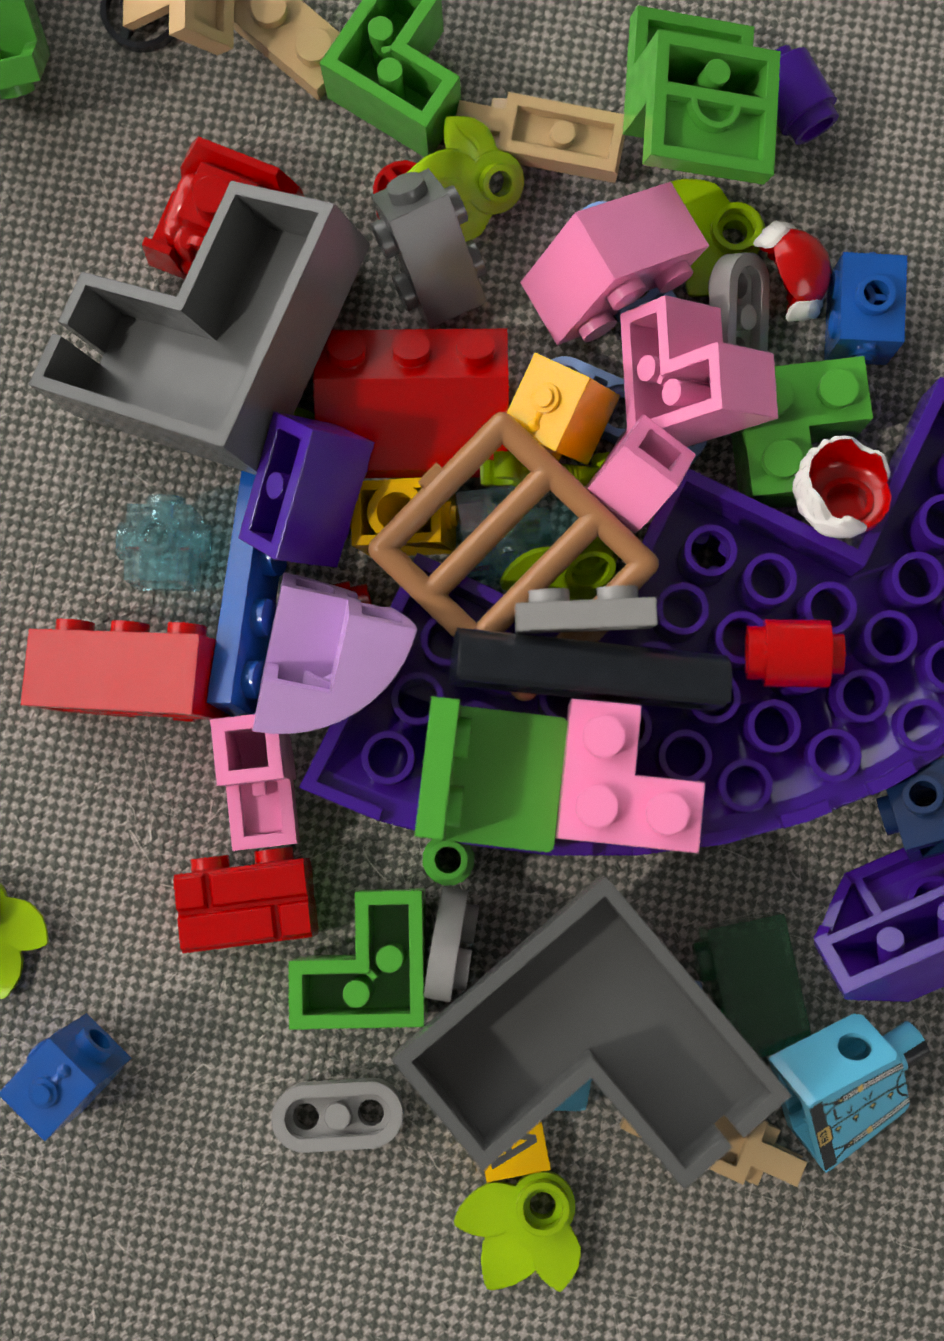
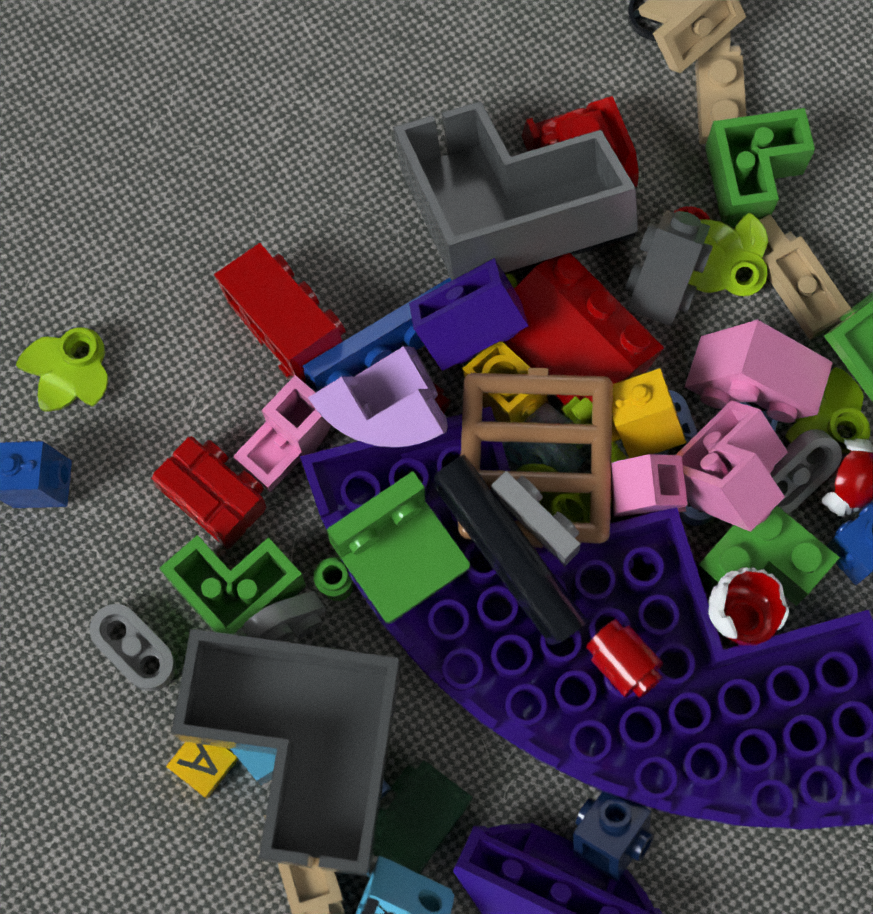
camera: 40 degrees right, 10 degrees down
(163, 544) = (371, 274): clear light blue brick -> none
(518, 1237) = (149, 815): lime plate -> none
(604, 797) = (445, 623): bright pink brick -> none

